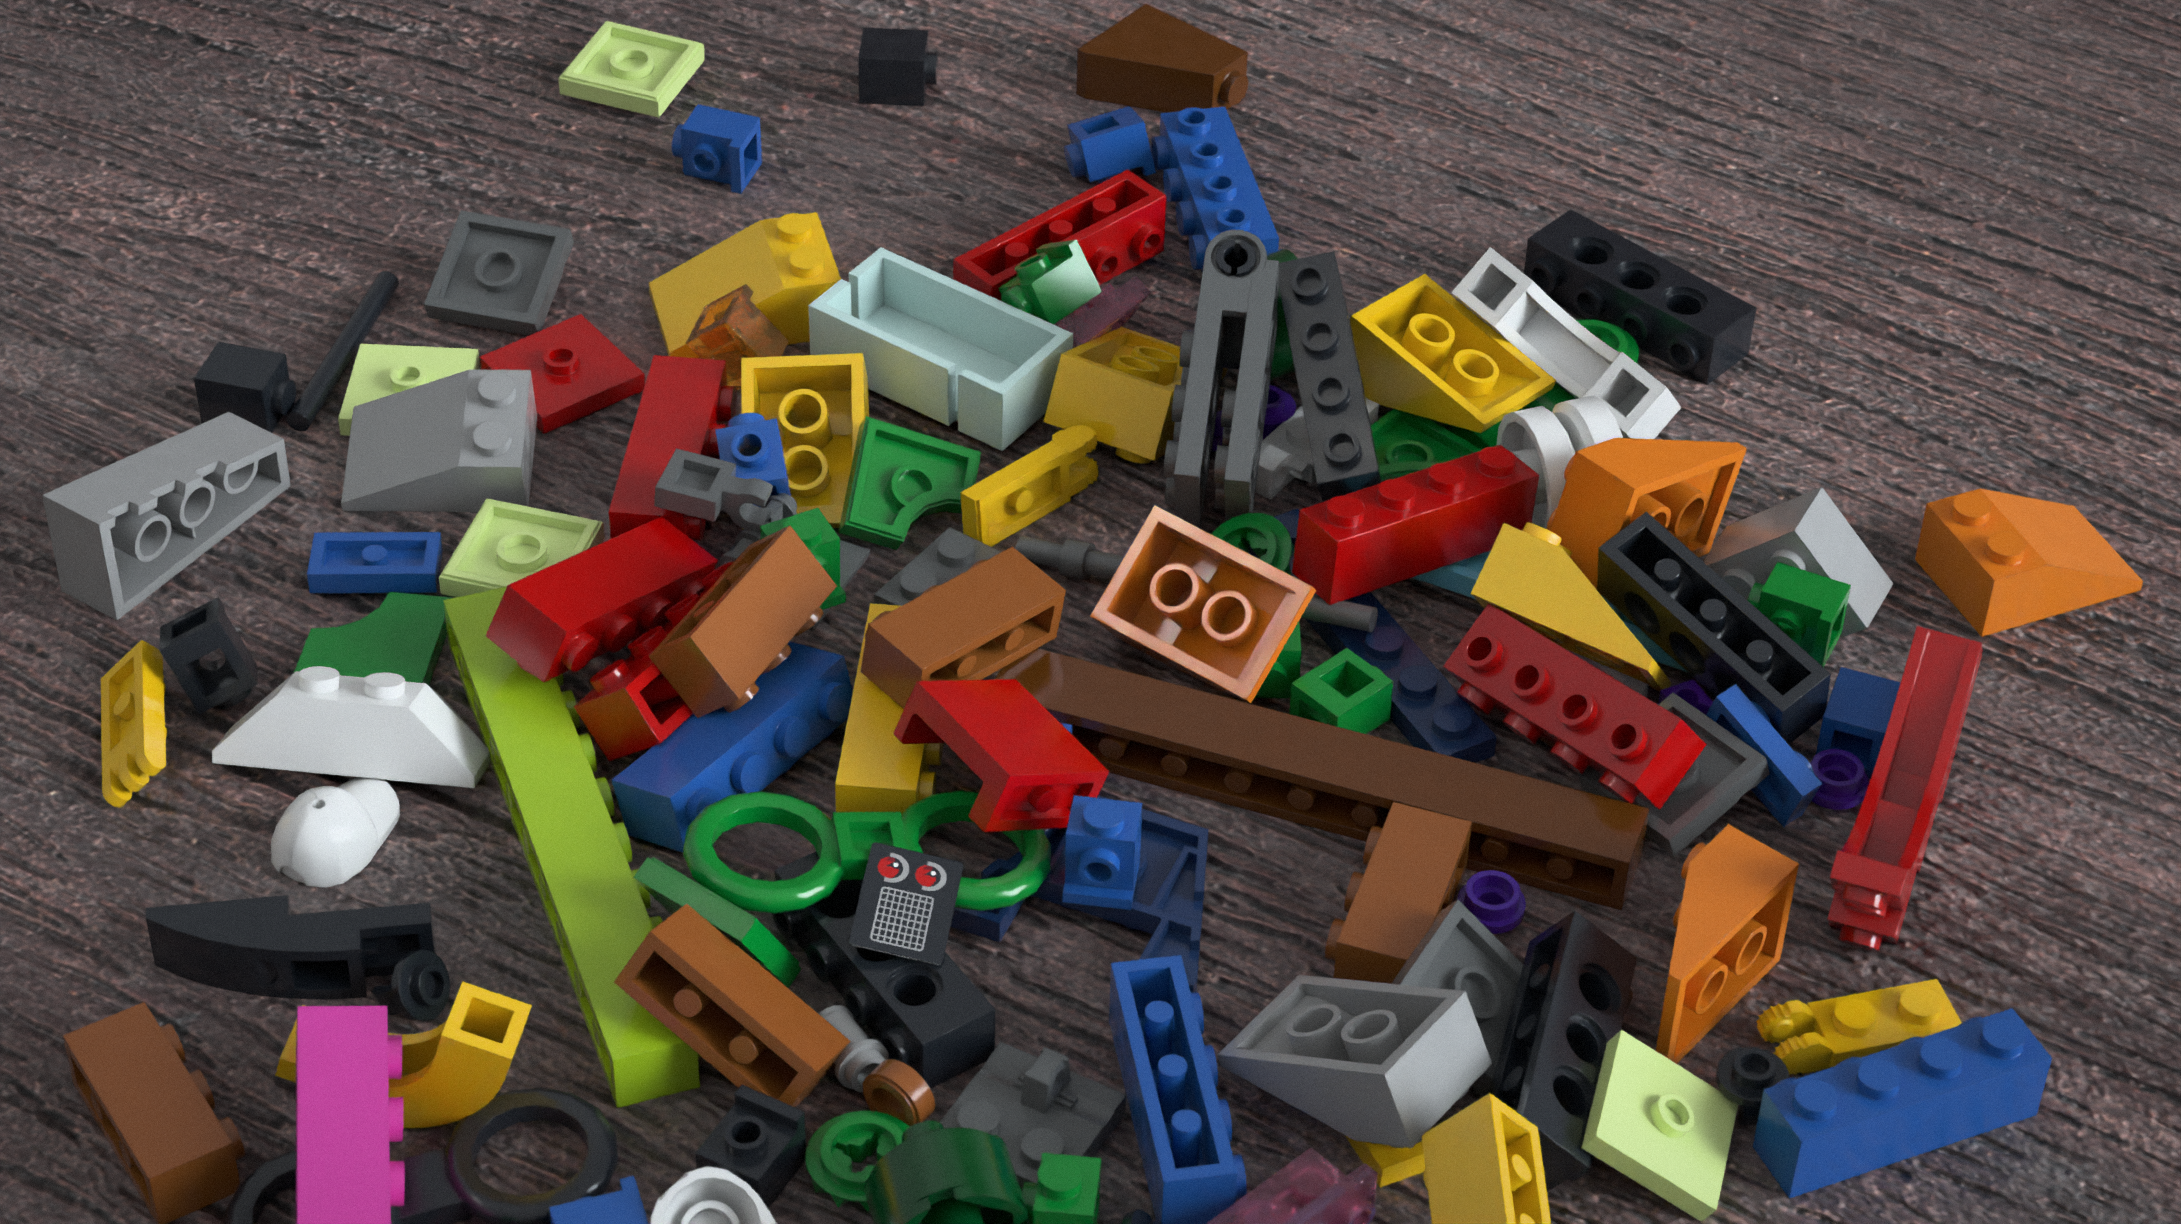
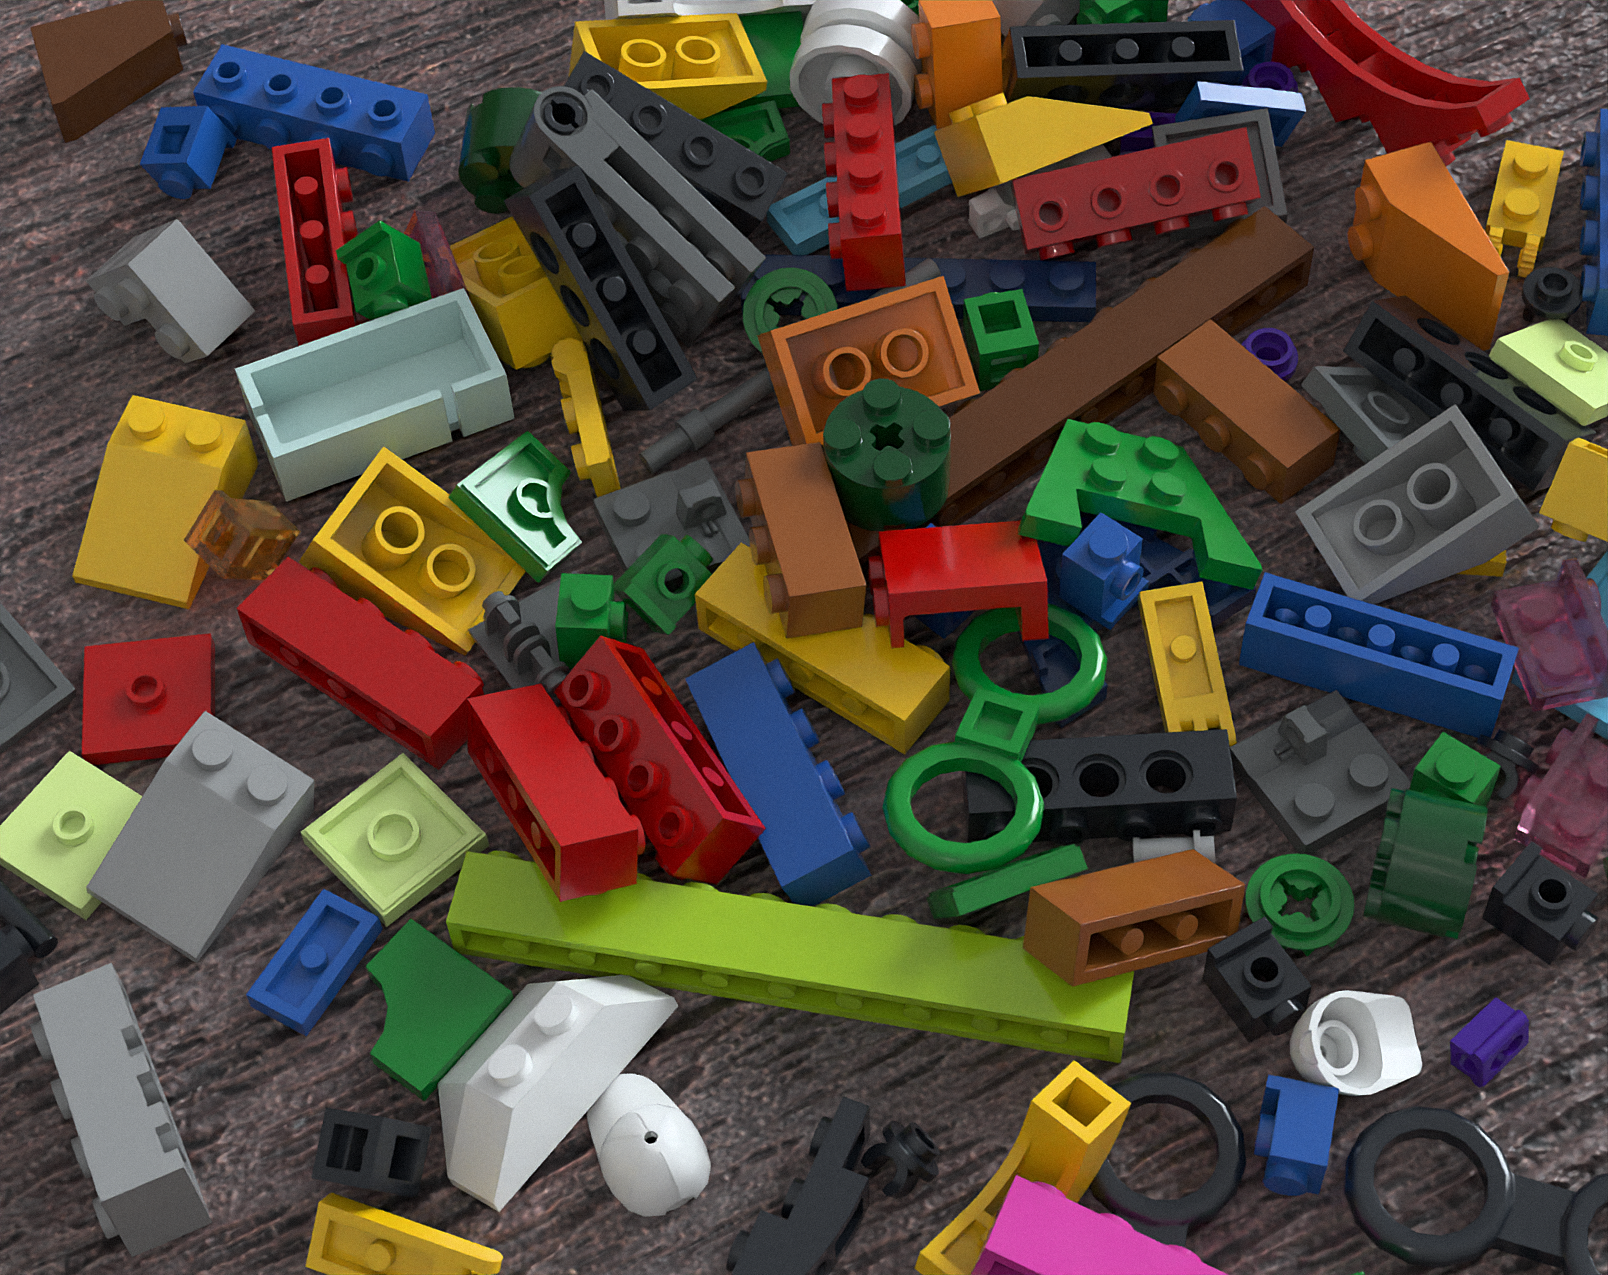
camera: 55 degrees left, 15 degrees up
(707, 485) = (477, 647): dark grey plate -> none
(744, 623) = (688, 692): dark orange brick -> none
(755, 449) = (440, 620): blue brick -> none
(860, 581) = (644, 581): none -> green brick
(899, 1092) = (1253, 845): dark orange tile -> none
(906, 903) = (1085, 733): black sticker -> none
(946, 193) = (175, 288): none -> light grey brick
(1065, 971) = (1185, 659): none -> yellow hinge
(1096, 647) = (888, 456): none -> dark green brick
(1125, 399) = (601, 289): none -> black brick
(1230, 834) = (1139, 484): none -> green wing

